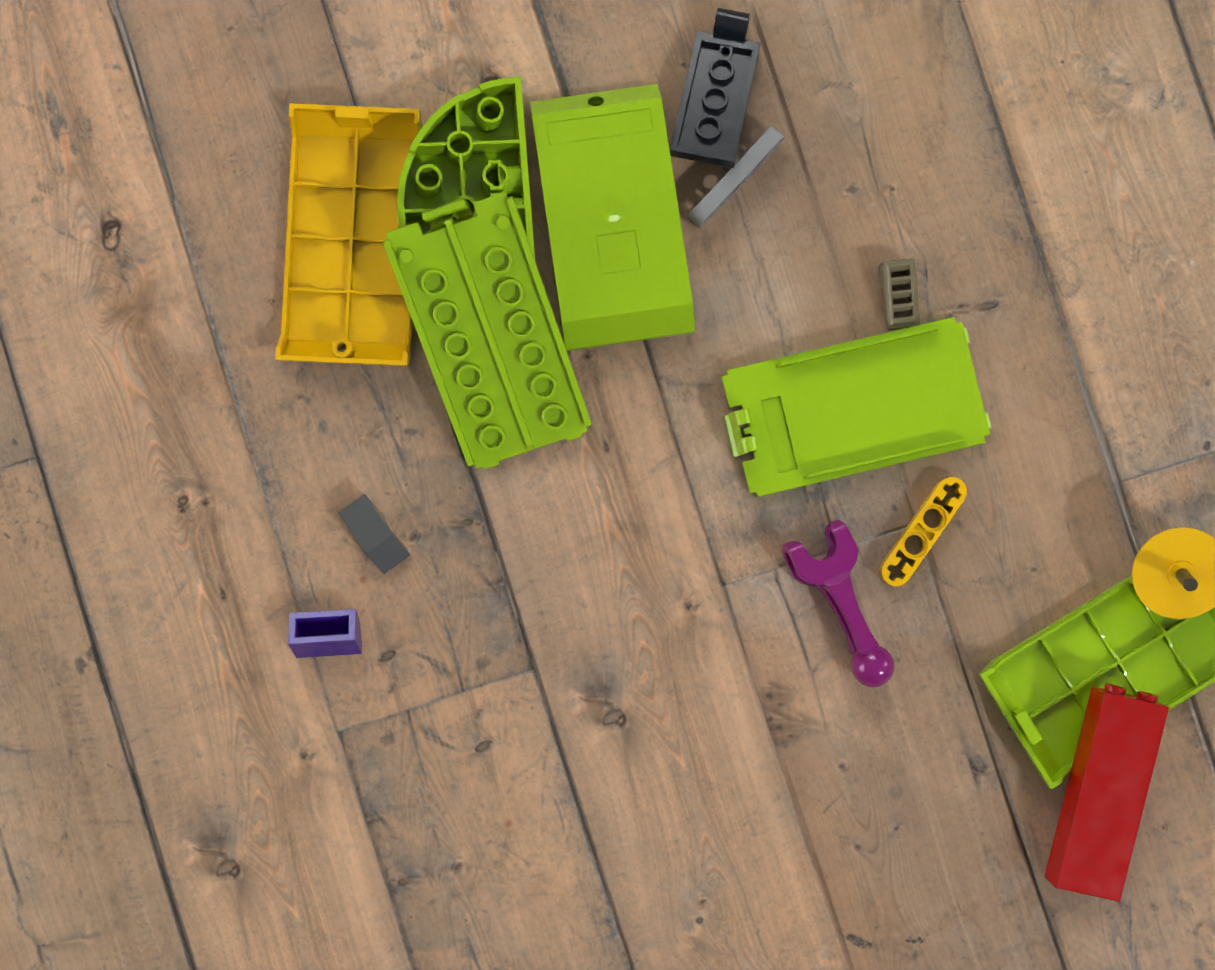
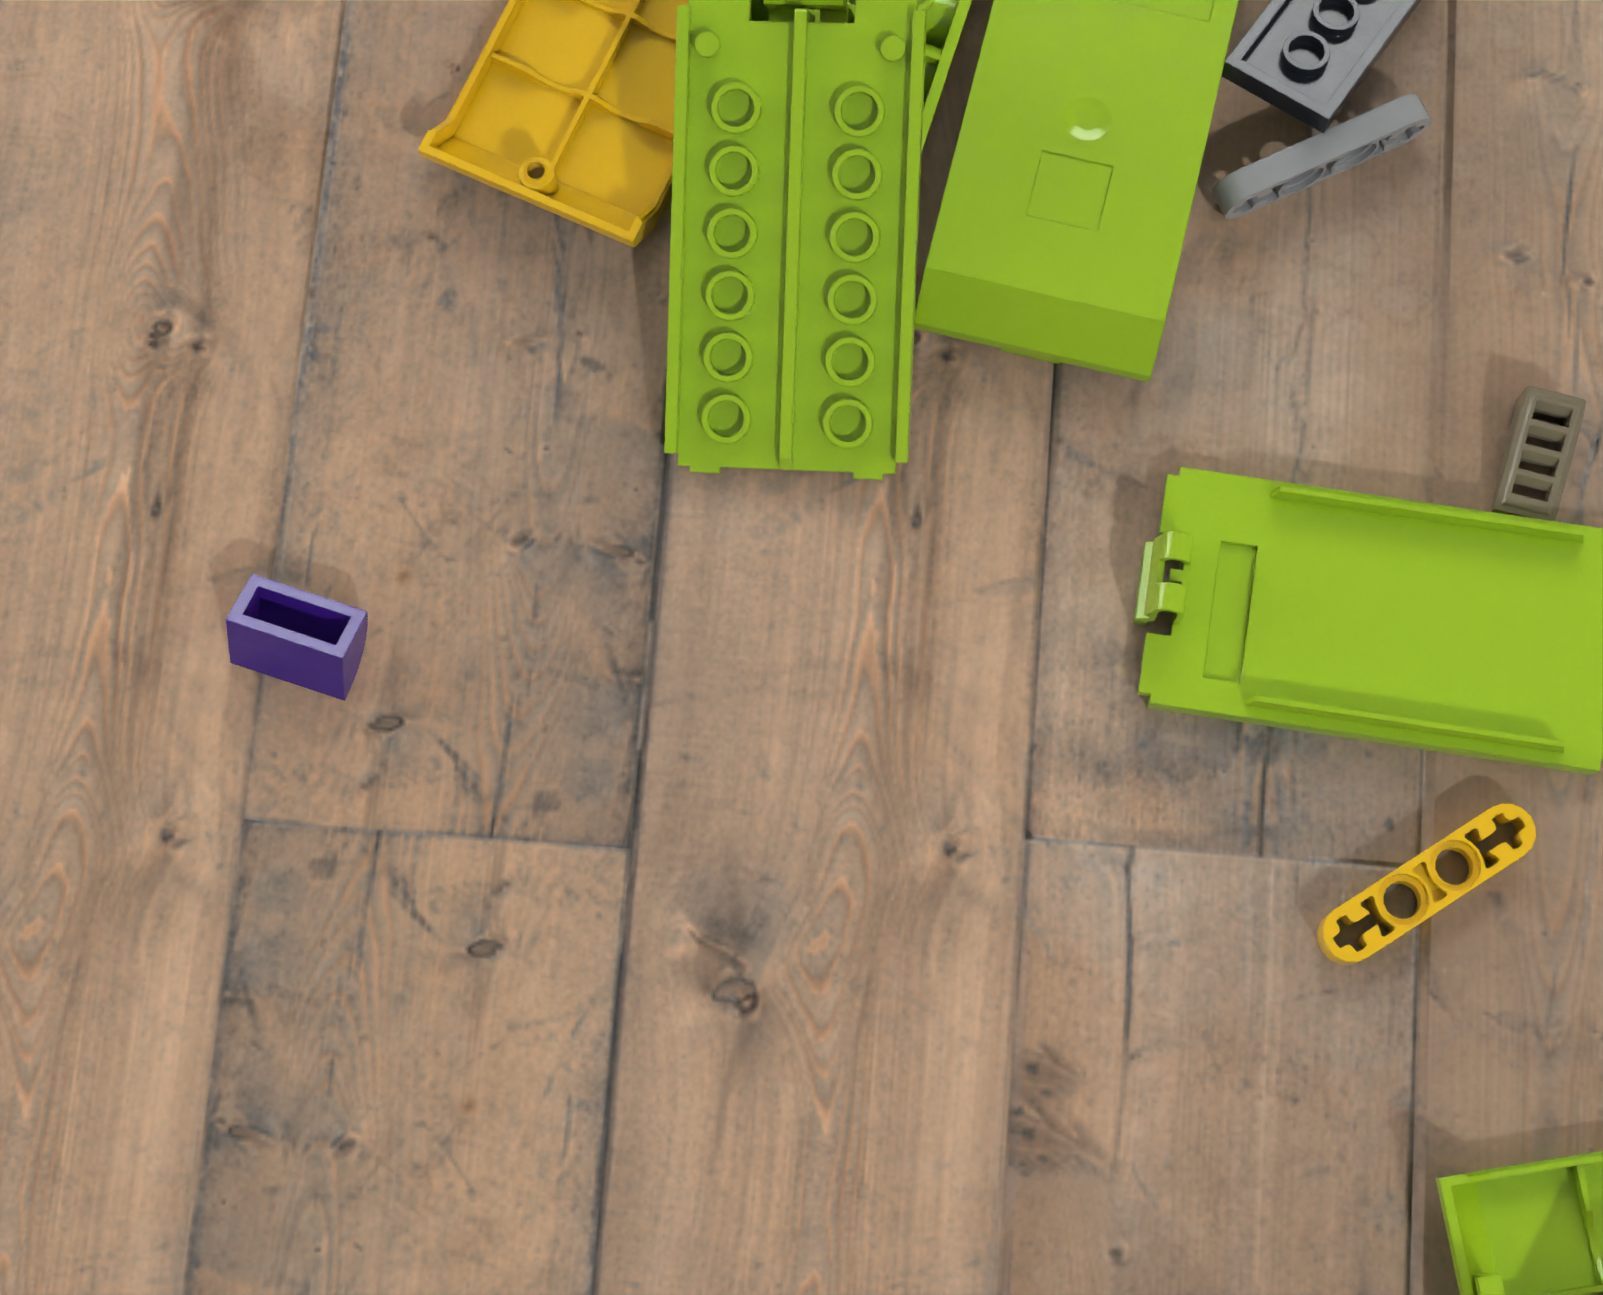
camera: 30 degrees right, 10 degrees down
(374, 534) = (455, 503): dark grey slope -> none
(871, 663) = (1228, 892): magenta piece -> none

